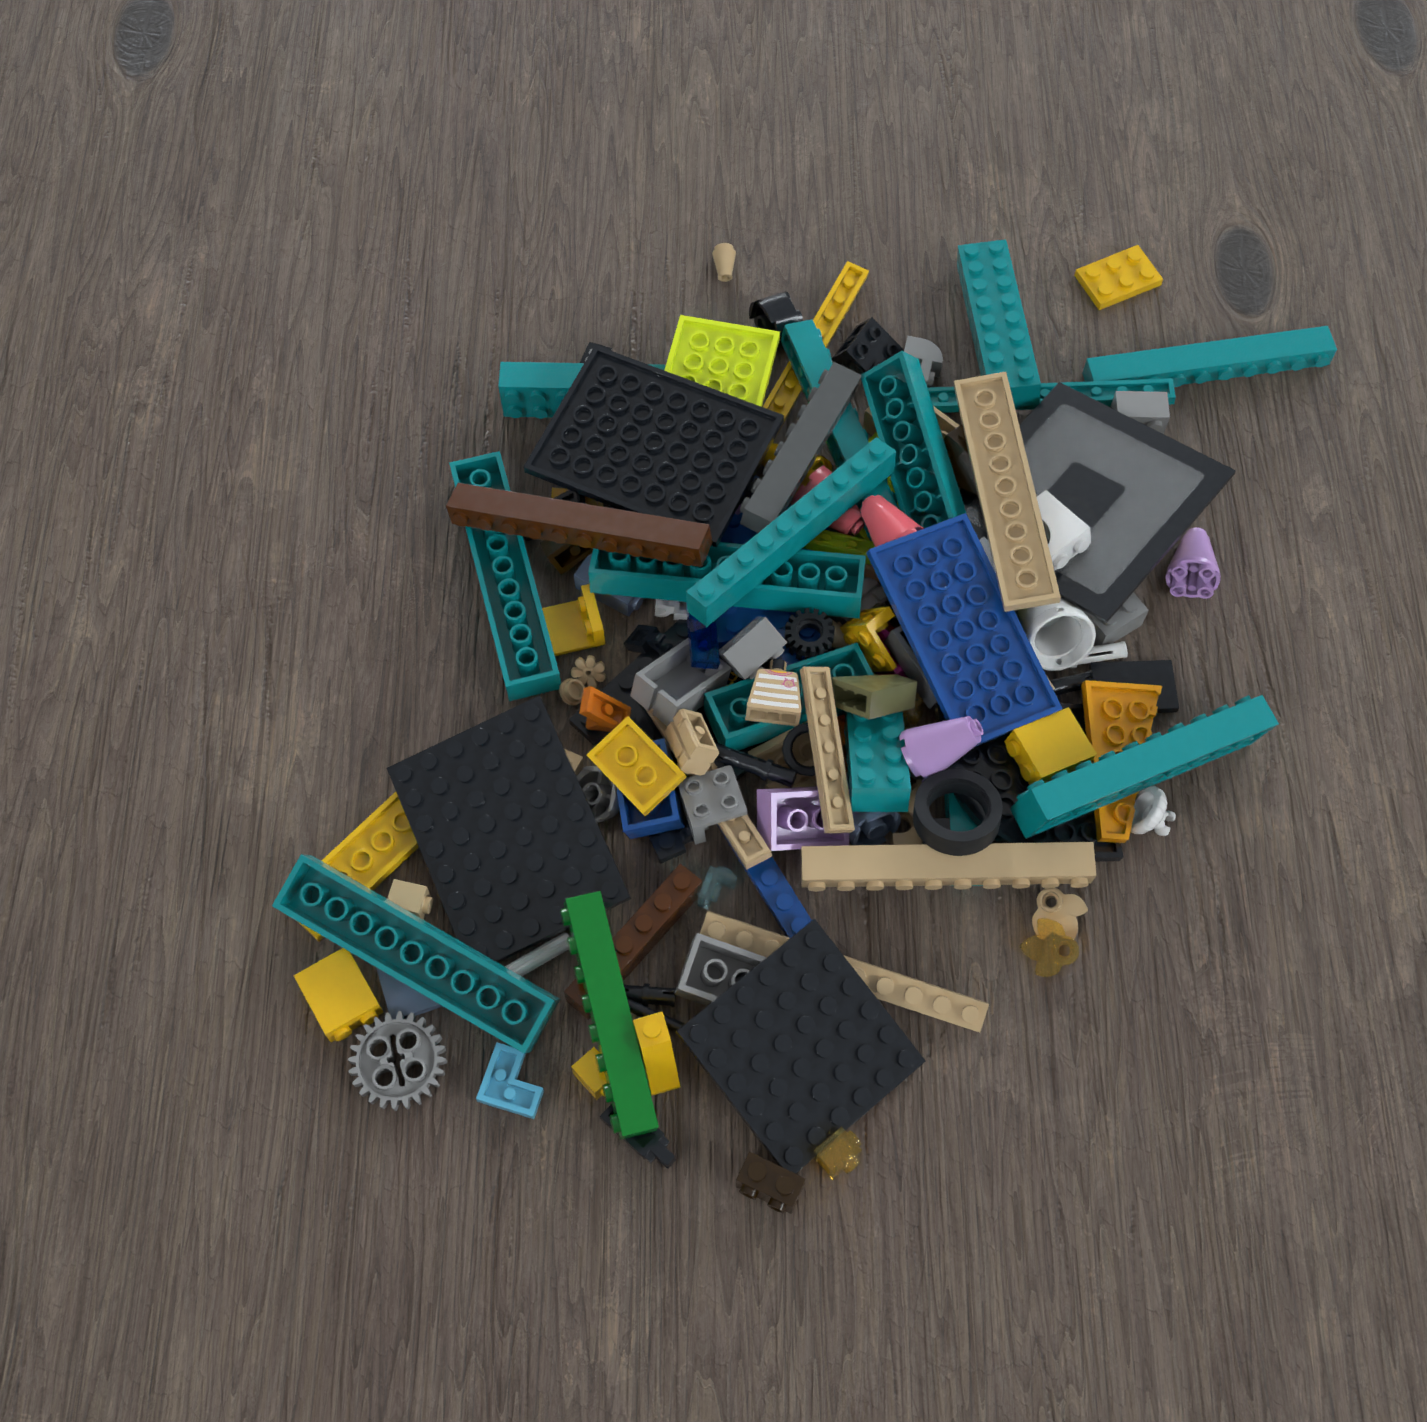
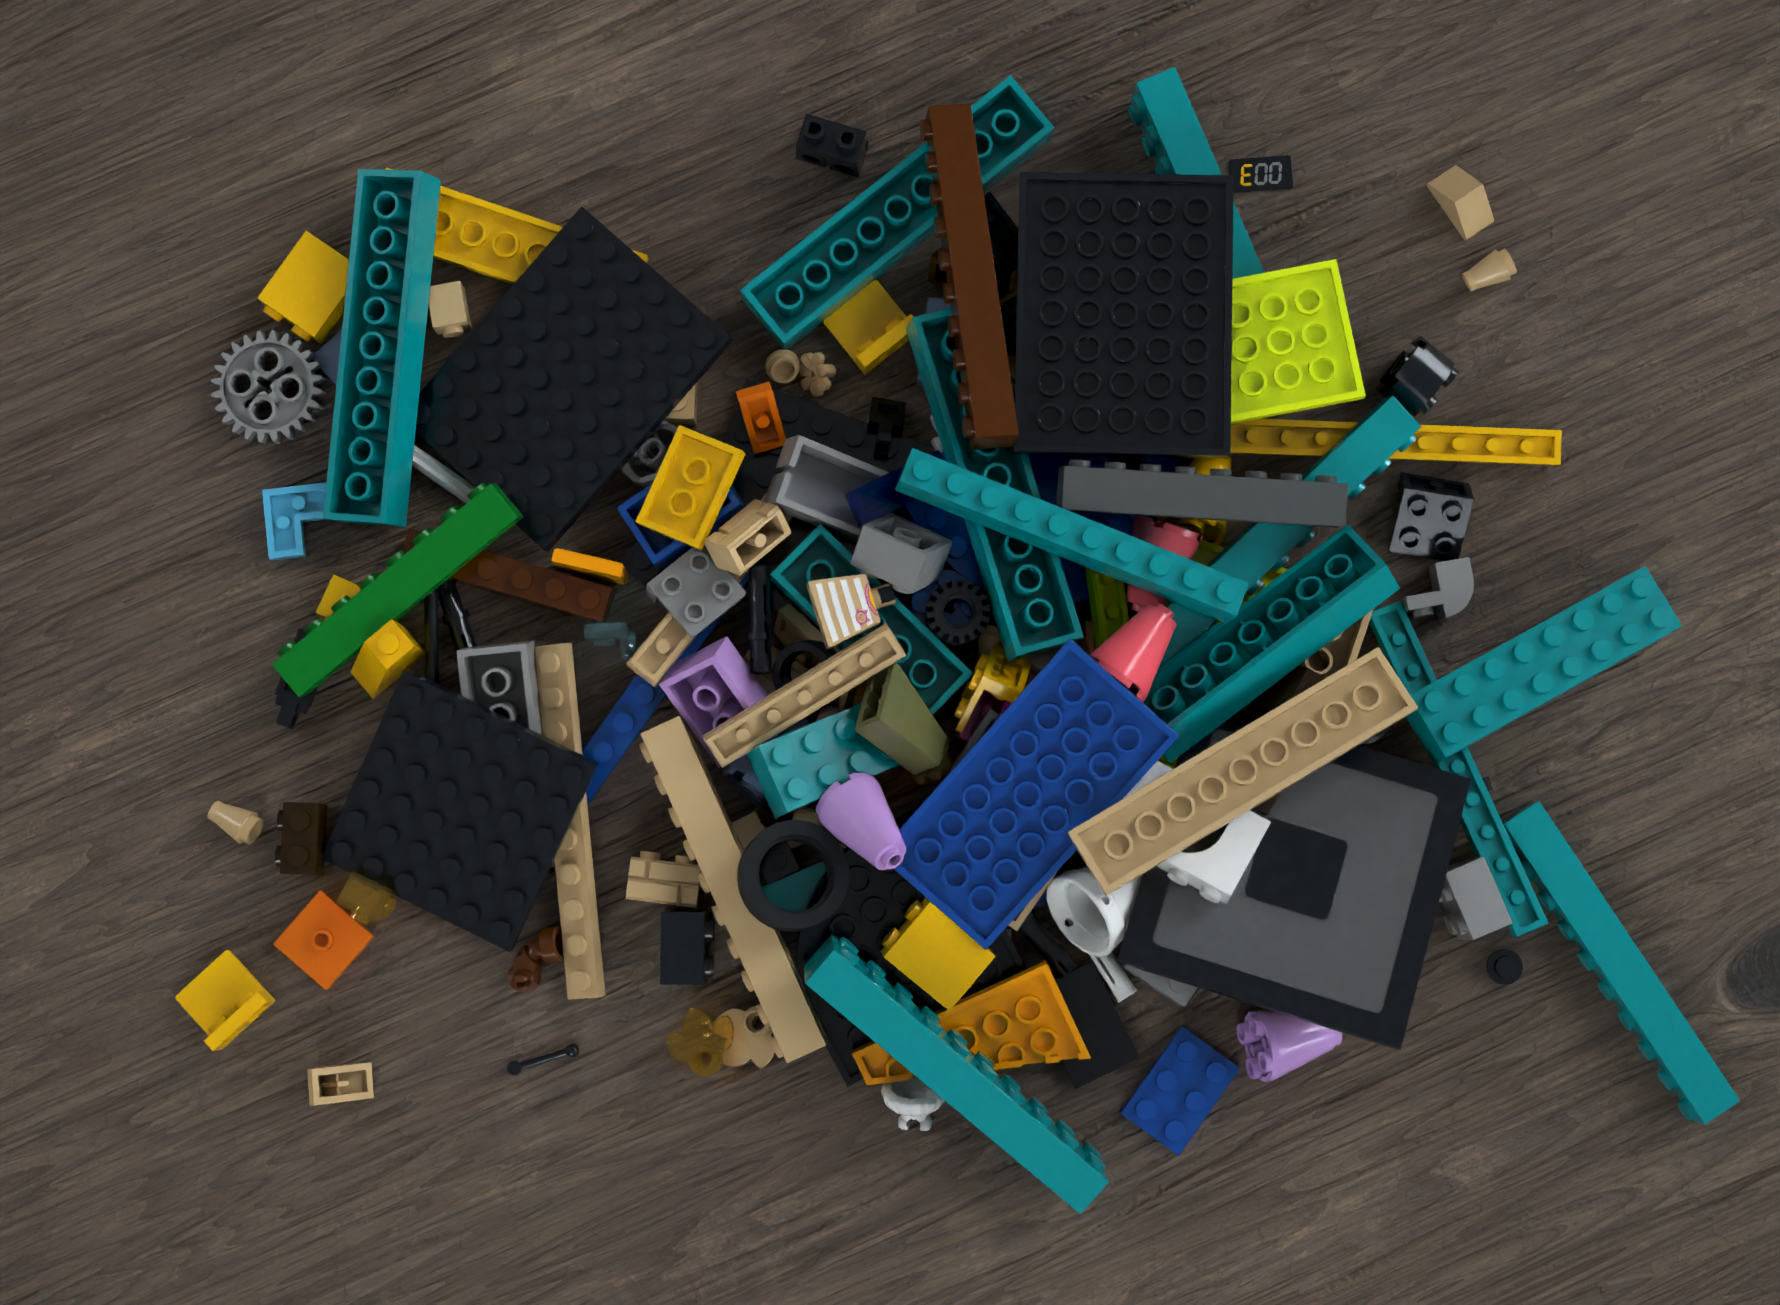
camera: 60 degrees right, 20 degrees up
(432, 594) = (833, 141): none -> black hips
(656, 871) = (590, 566): none -> light orange tile
(670, 259) = (1462, 201): none -> tan slope
(732, 1234) = (236, 822): none -> tan cone
(857, 1205) = (323, 940): none -> orange plate
(876, 1306) = (224, 1000): none -> yellow bracket
(917, 923) = (663, 881): none -> tan brick
(946, 1055) = (526, 971): none -> reddish brown arm
(976, 923) = (685, 948): none -> black brick
(980, 1238) = (340, 1083): none -> tan slope
(1018, 1096) = (516, 1067): none -> black hinge
(1118, 277) = (1709, 796): yellow plate -> none
(1188, 425) = (1504, 966): none -> black plate
(1203, 646) = (1179, 1090): none -> blue plate

